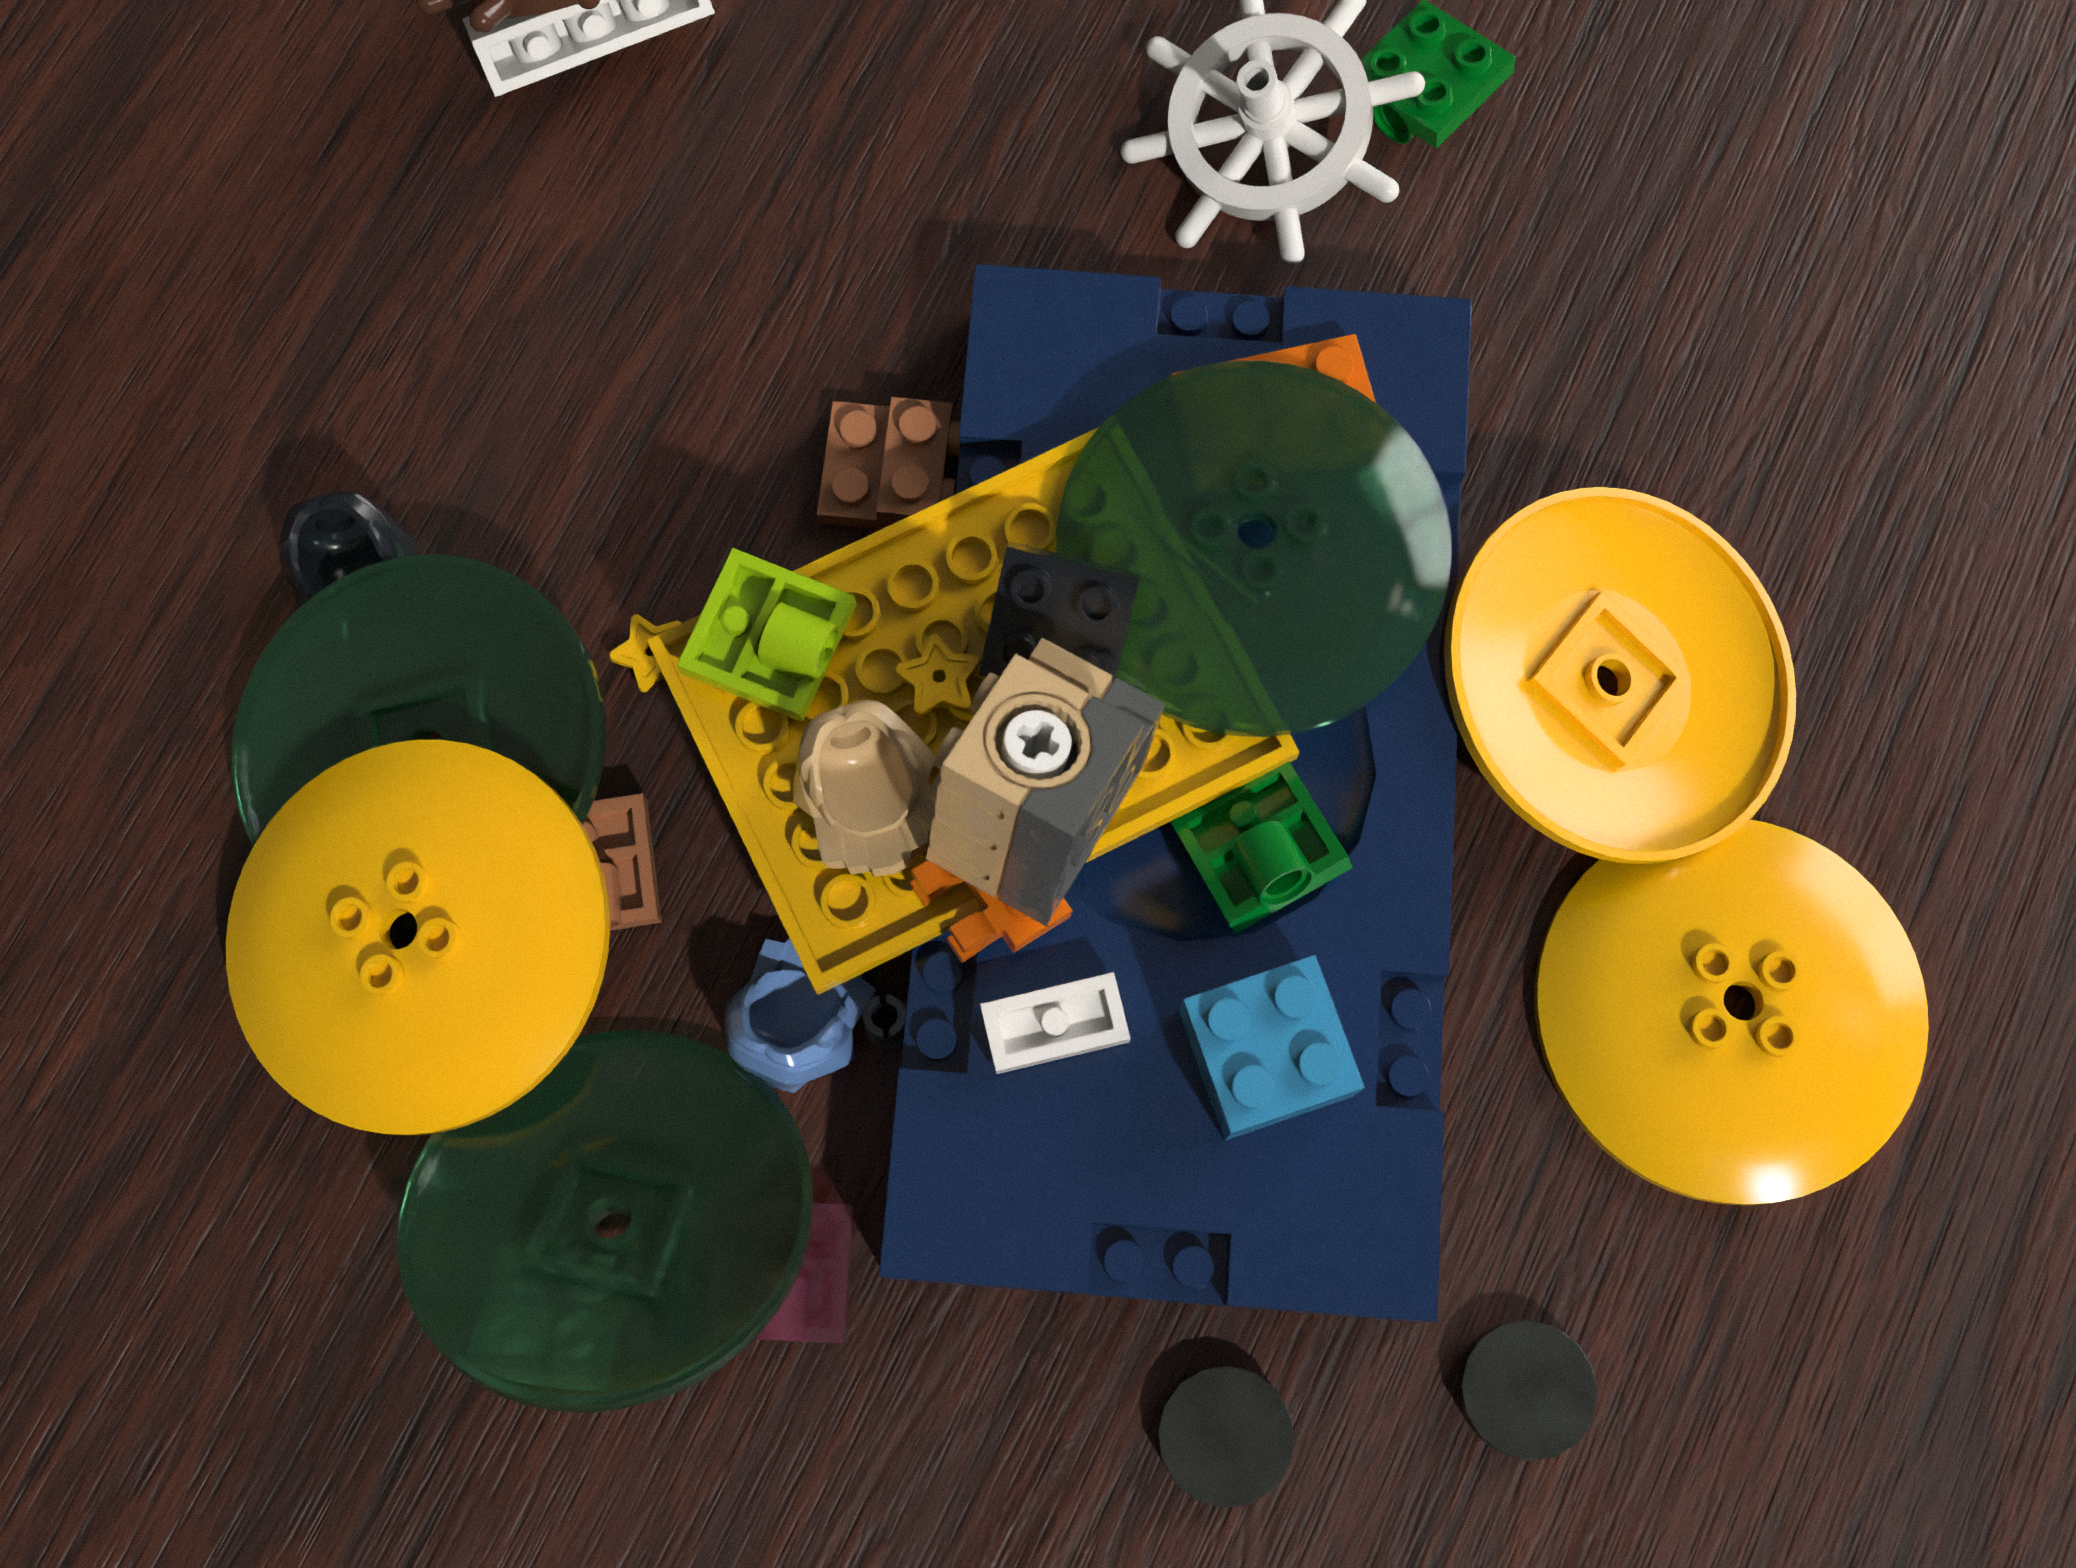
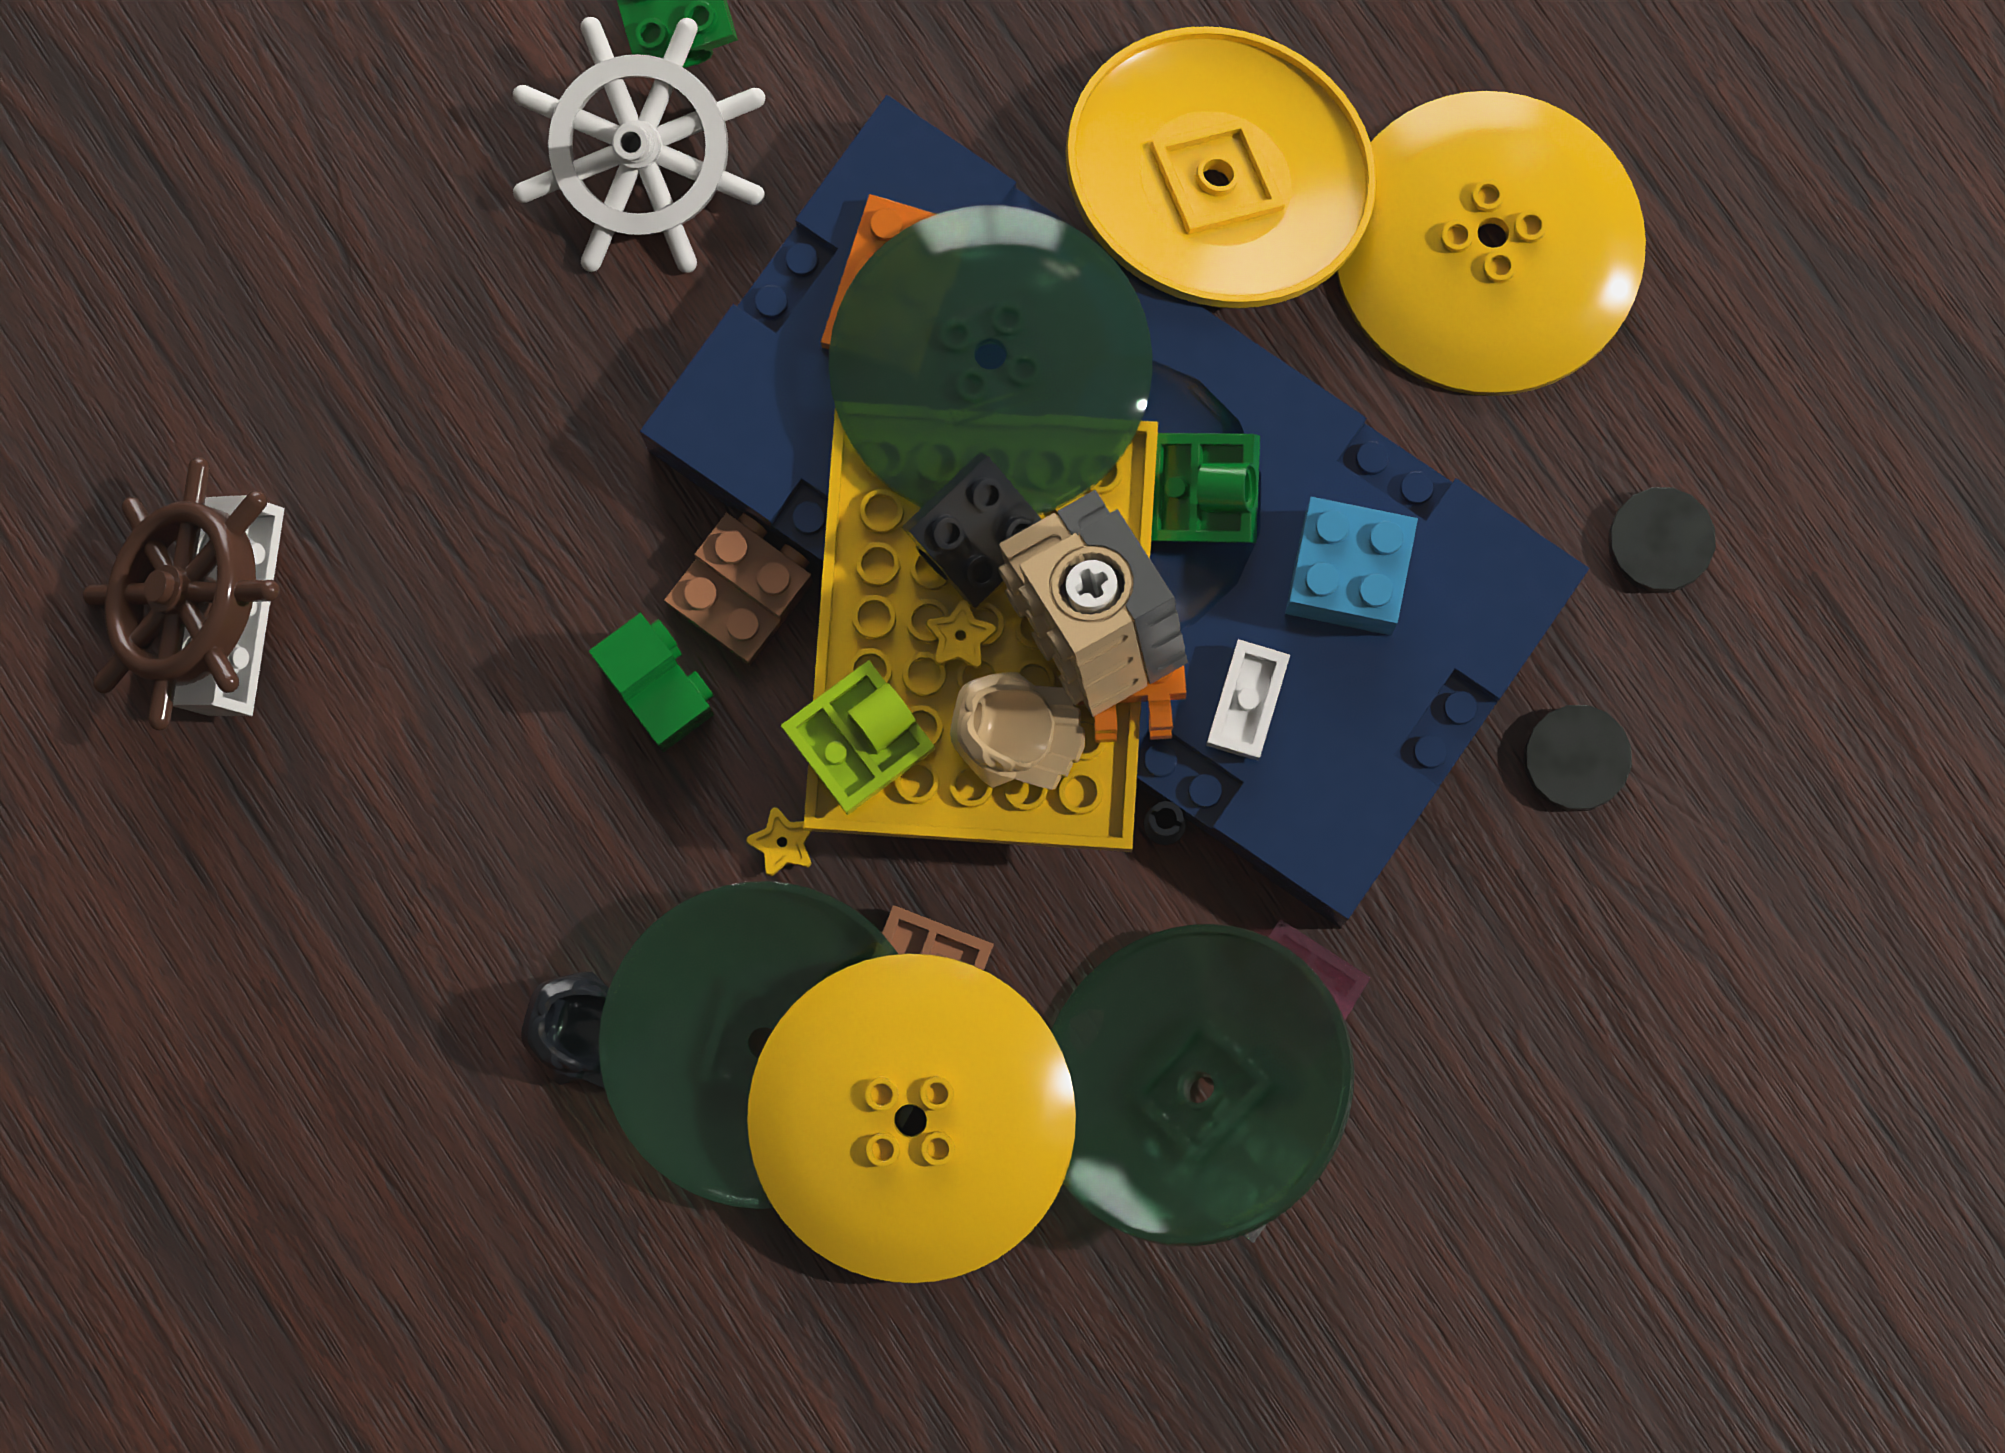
camera: 60 degrees left, 5 degrees up
(741, 426) = (645, 674): none -> green brick
(787, 1030) = (1122, 892): medium blue hair -> none

